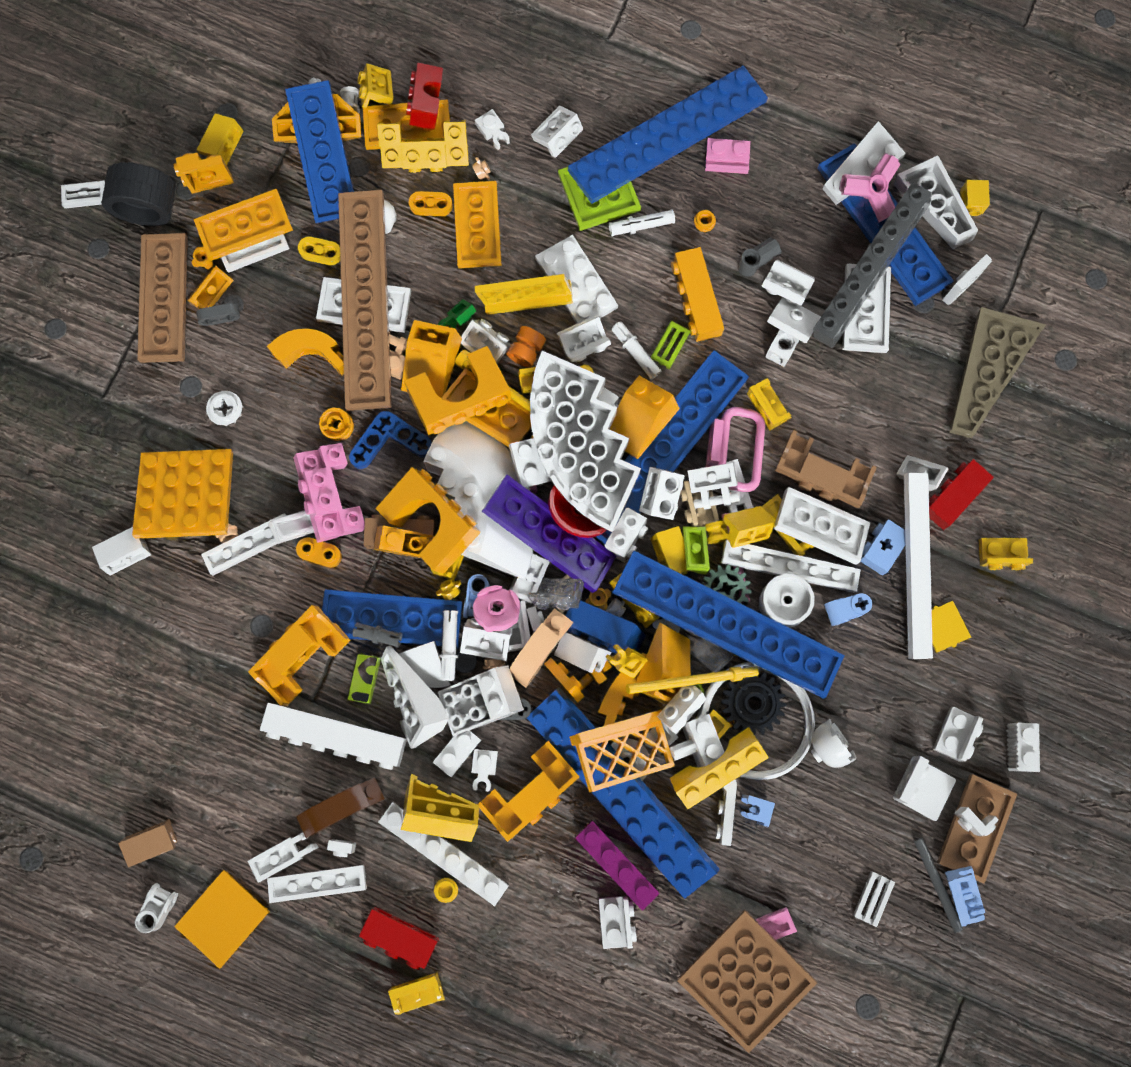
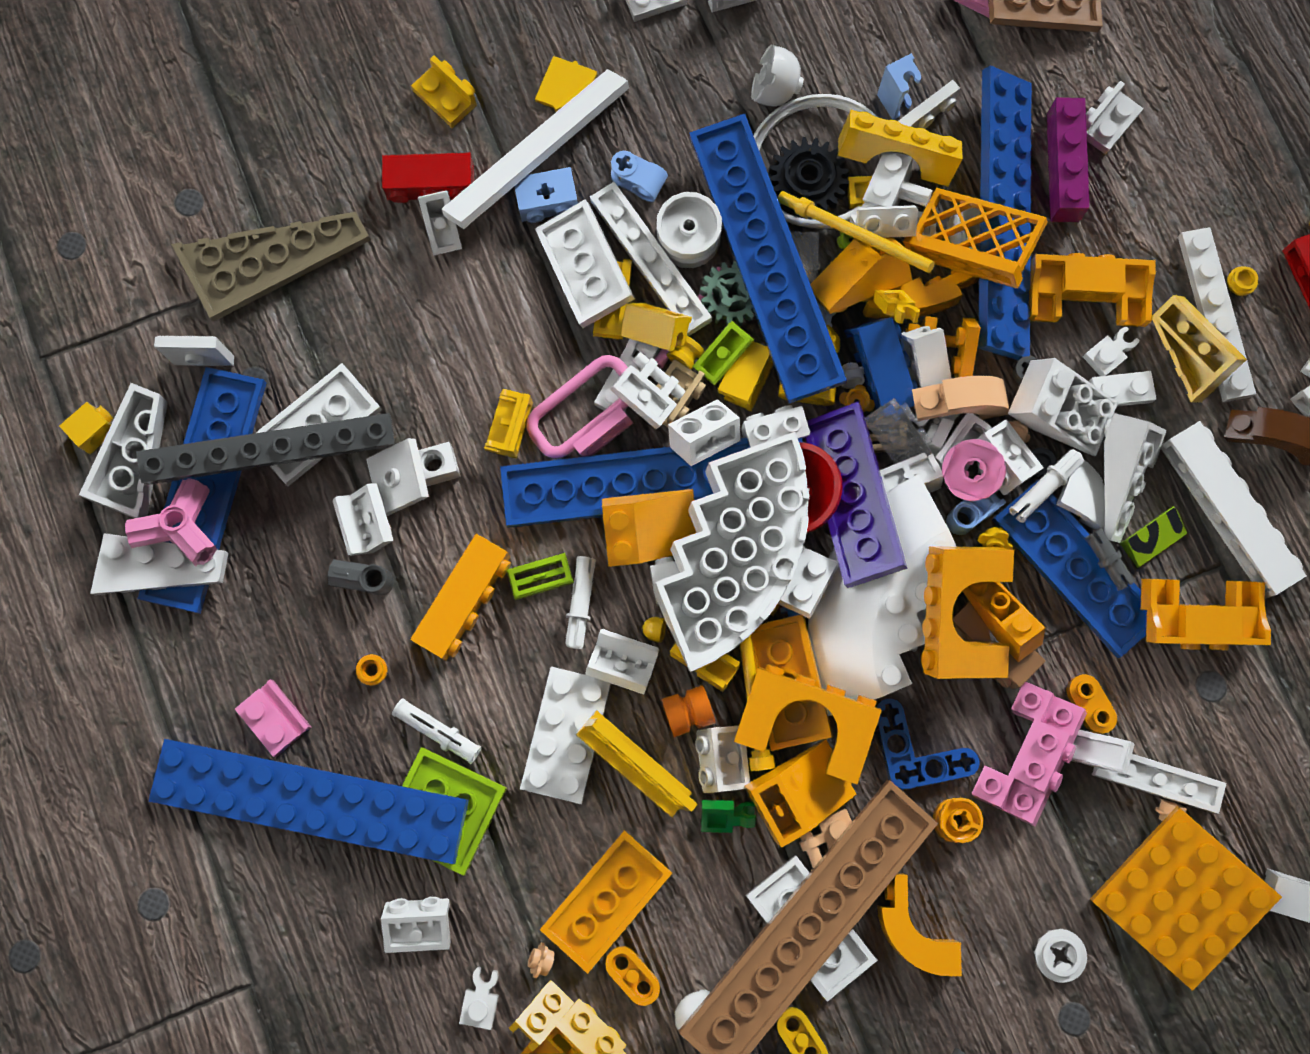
camera: 135 degrees left, 0 degrees up
(822, 476) = (541, 319): medium nougat bracket -> none

